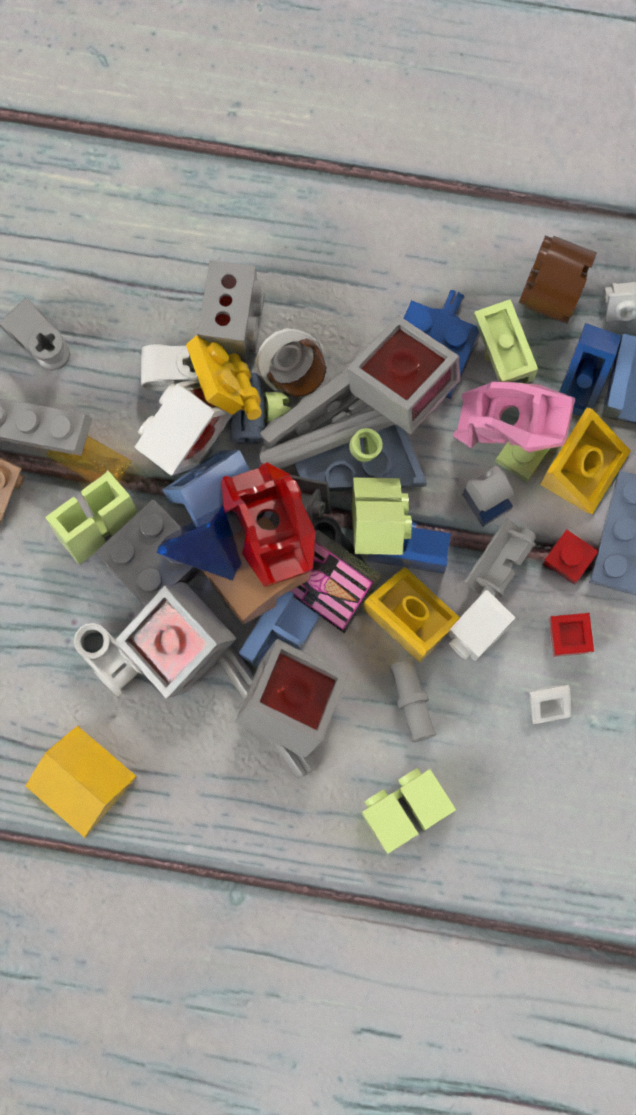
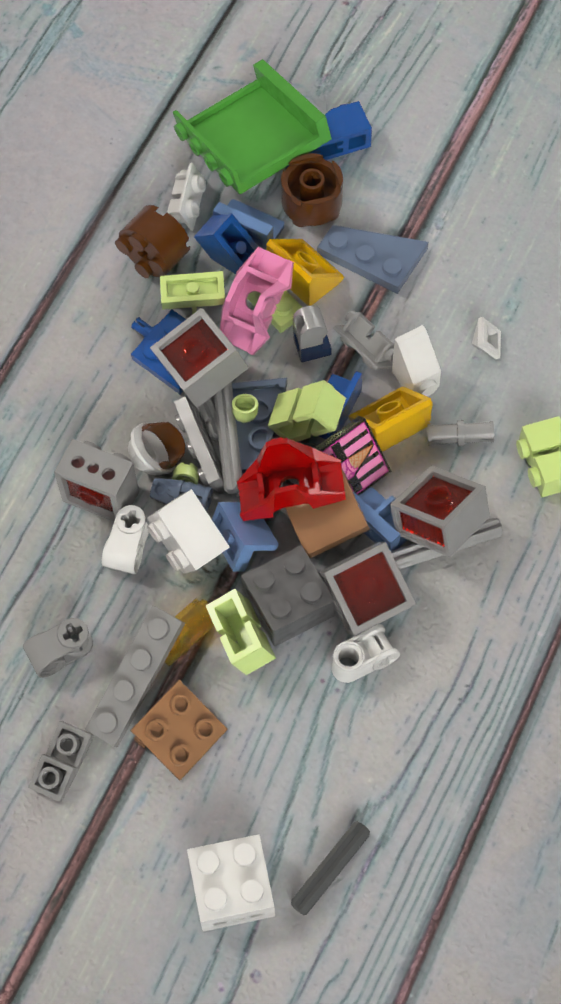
camera: 75 degrees left, 15 degrees down
(79, 780) = (465, 704): yellow slope -> none
(205, 545) = (294, 535): clear blue slope -> none
(224, 378) = (157, 489): yellow plate -> none
(570, 557) = (374, 299): red plate -> none
(571, 634) = (437, 311): red plate -> none

